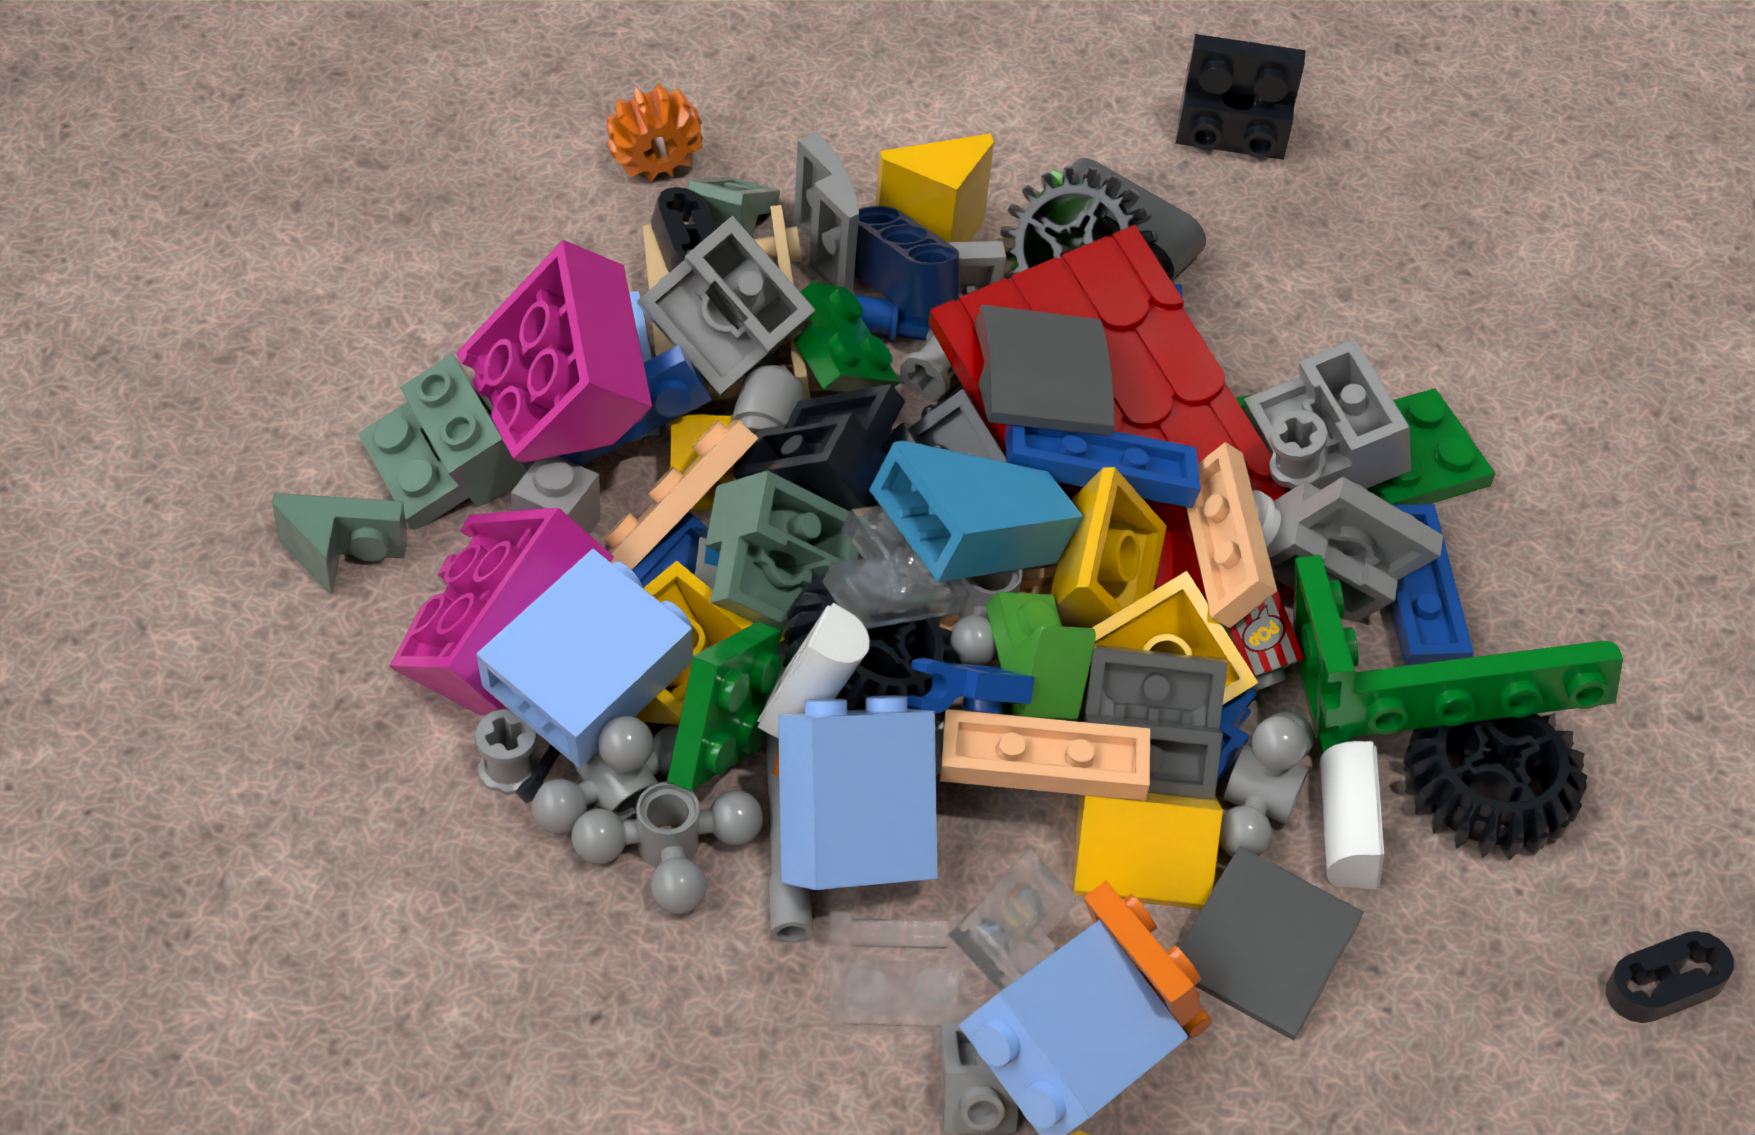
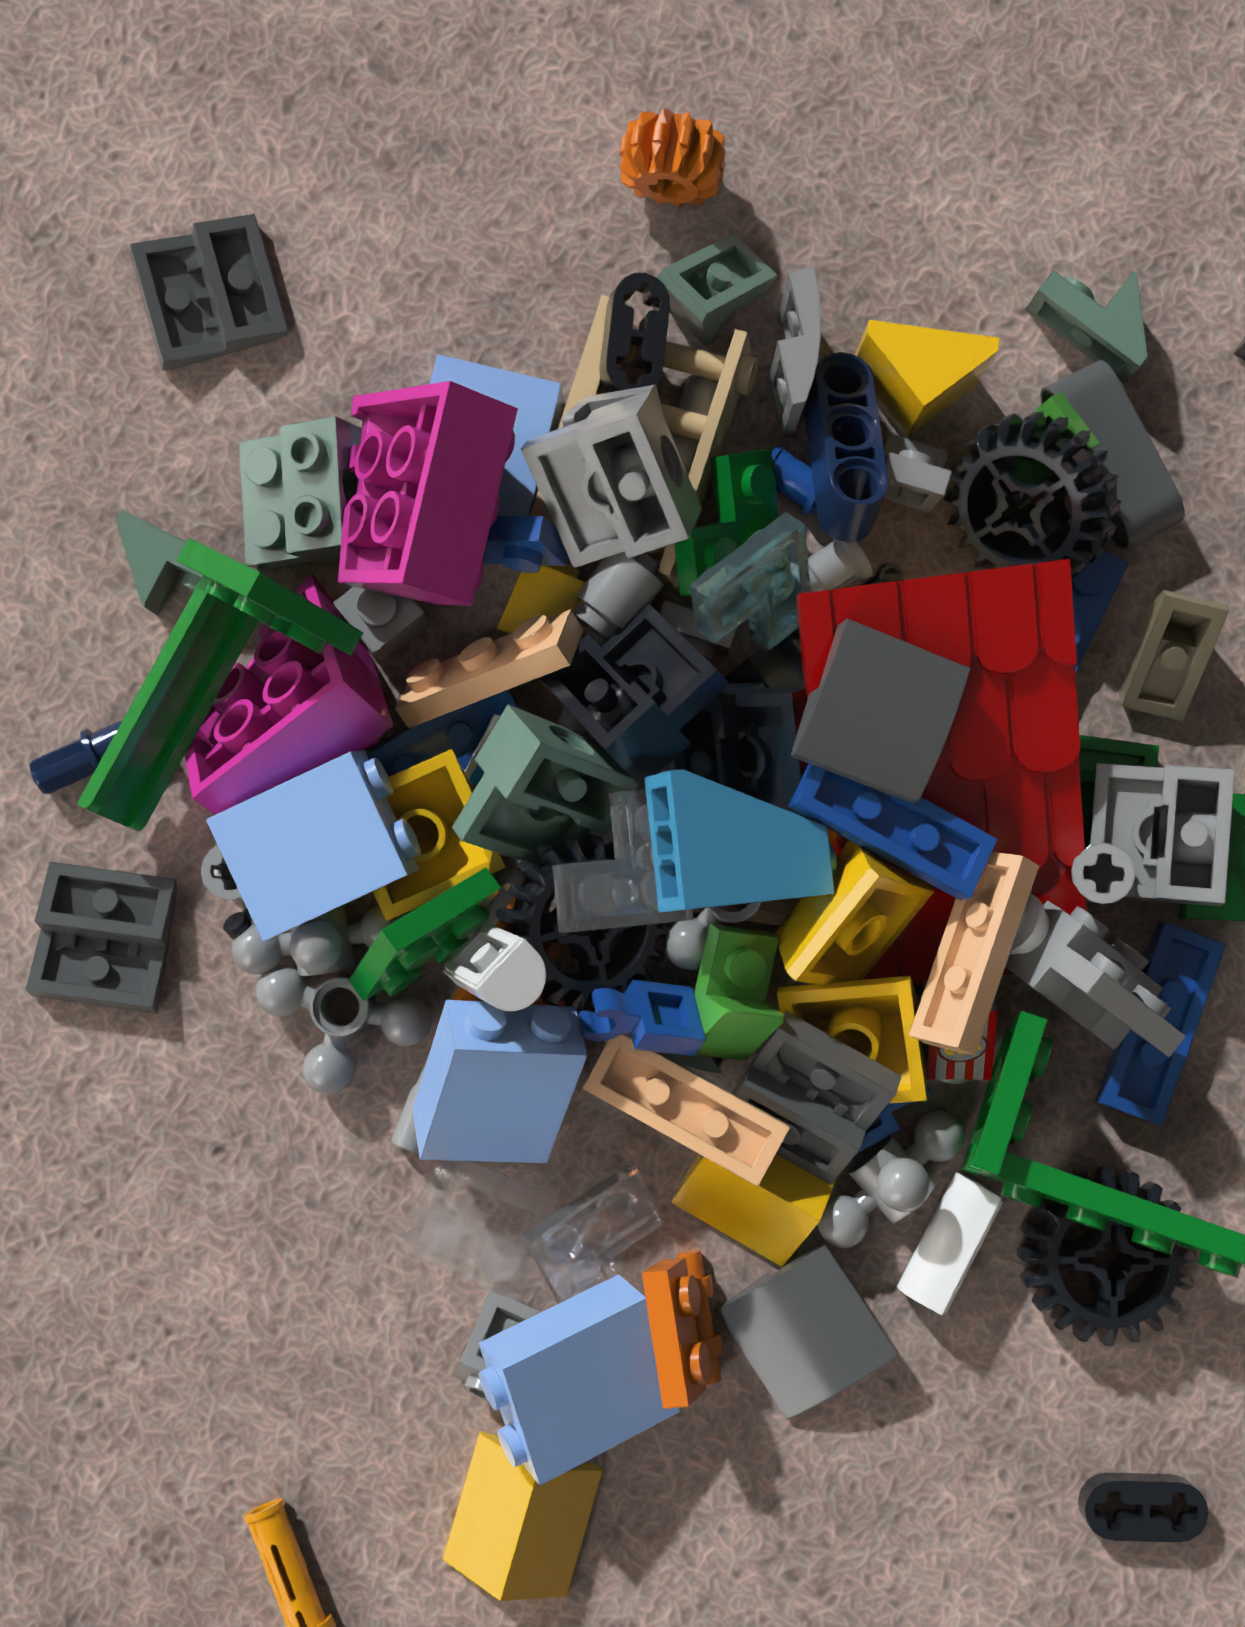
camera: 30 degrees right, 35 degrees up
(279, 343) = (208, 291): none -> dark grey slope
(317, 711) = (72, 761): none -> dark blue axle
(391, 866) = (102, 937): none -> dark grey slope
(429, 494) = (191, 675): none -> green bracket
(886, 350) = (756, 584): none -> clear light blue plate
(1049, 144) = (1099, 332): none -> sand green slope
(1255, 318) = (1172, 653): none -> dark tan slope

